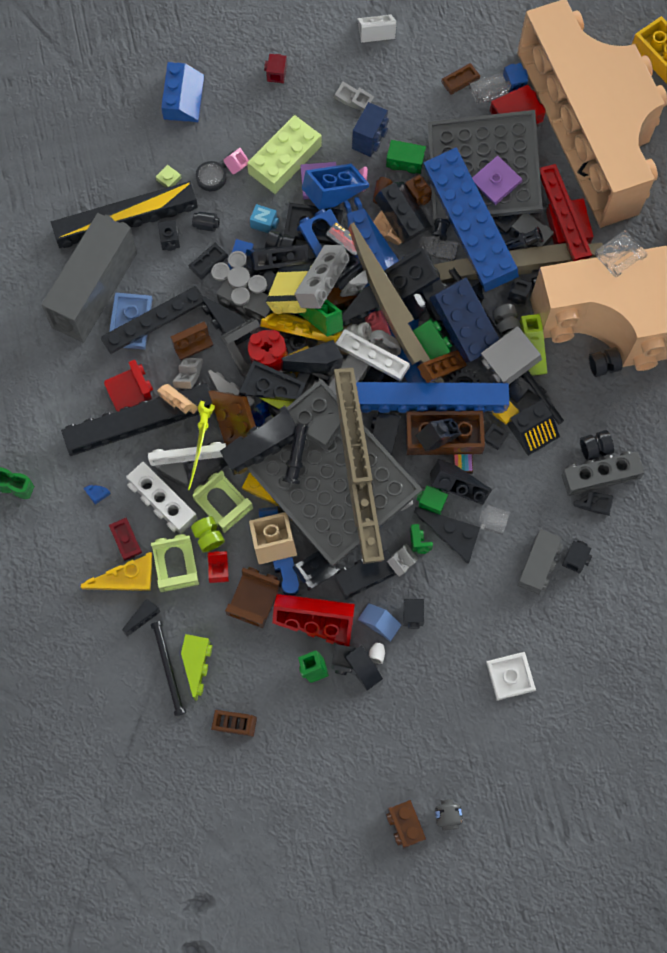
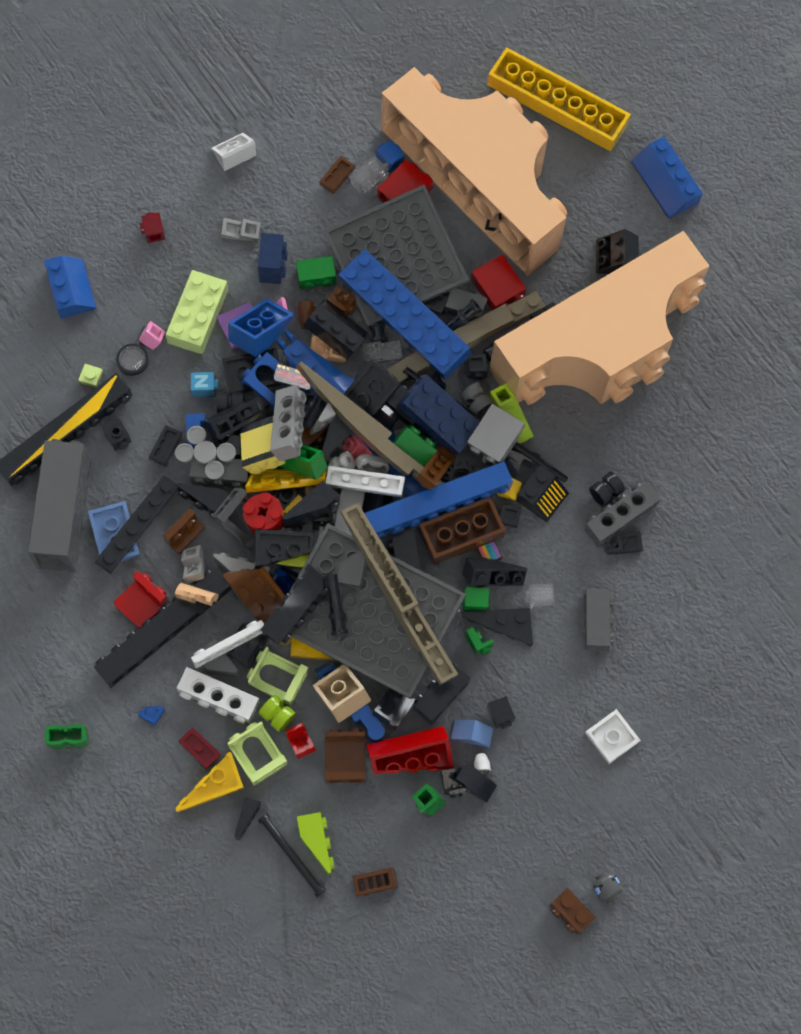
camera: 25 degrees left, 0 degrees up
(202, 425) = (233, 612): neon yellow sword -> none
(205, 221) = (147, 407): black brick -> none
(402, 560) = (471, 666): light grey slope -> none
(438, 434) = (458, 535): black slope -> none
(496, 180) = (414, 266): medium lavender plate -> none
(565, 213) = (491, 276): red plate -> none
(577, 556) = (630, 601): black brick -> none
(604, 362) = (586, 404): black wheel -> none
(616, 249) = (559, 297): clear plate -> none

